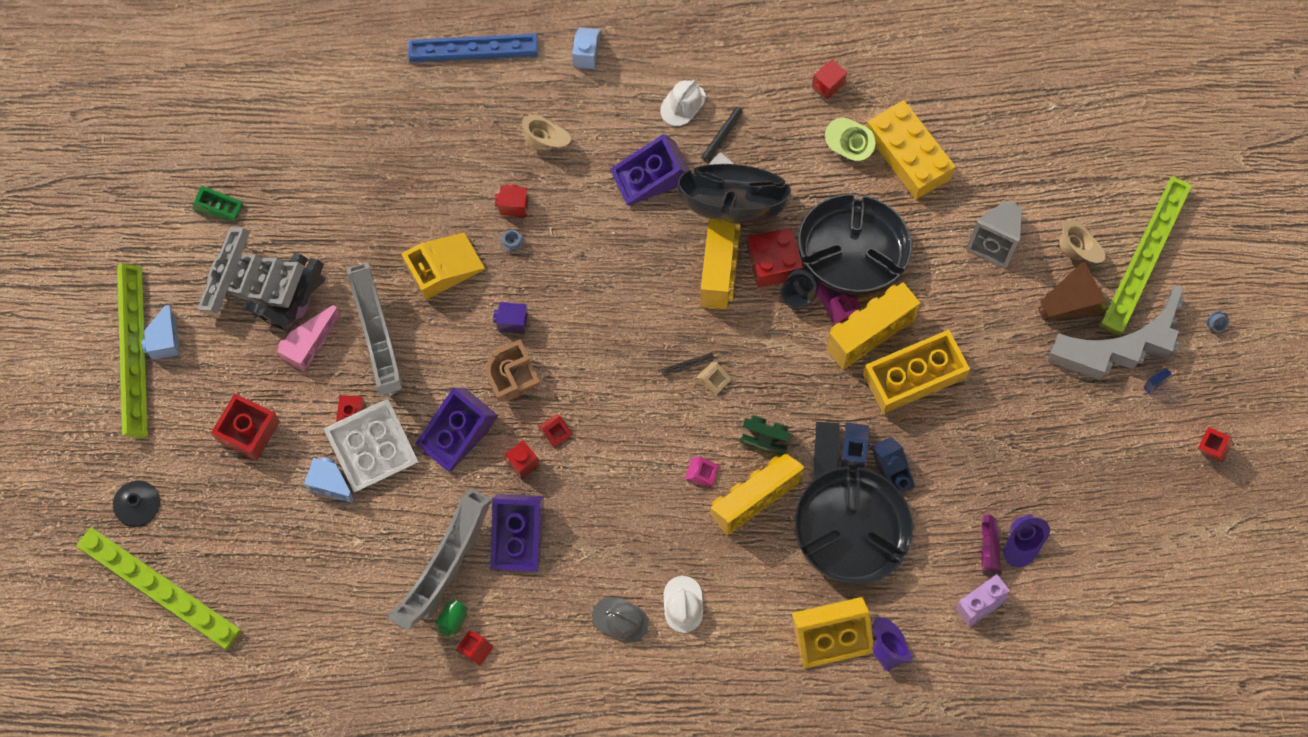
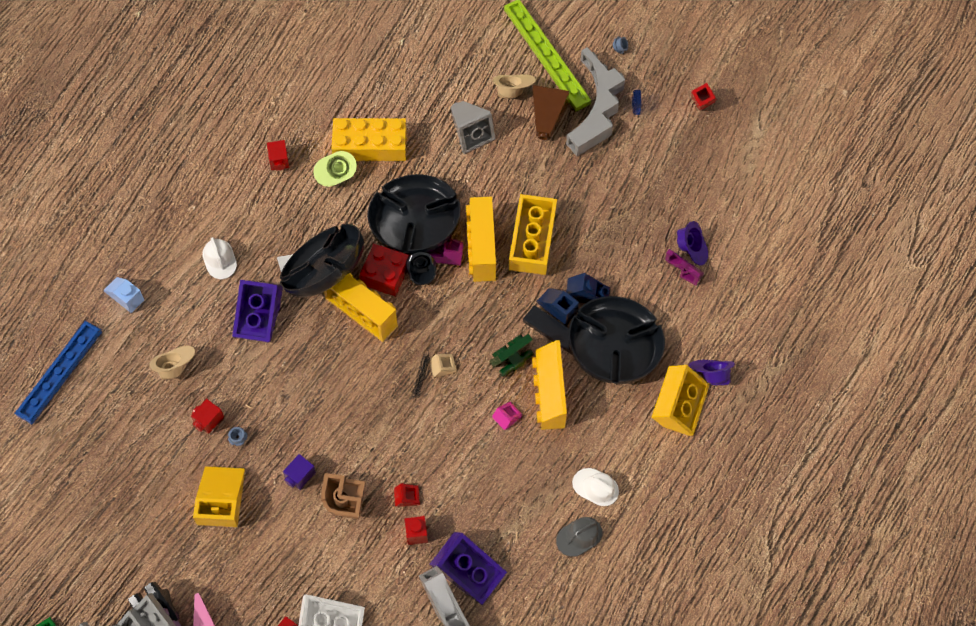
camera: 60 degrees left, 5 degrees down
(375, 329) = (242, 576): light grey arch -> none
(456, 428) = (358, 564): dark purple slope -> none
(722, 134) = (263, 247): black bar -> none
(982, 600) = (719, 294): lavender window -> none

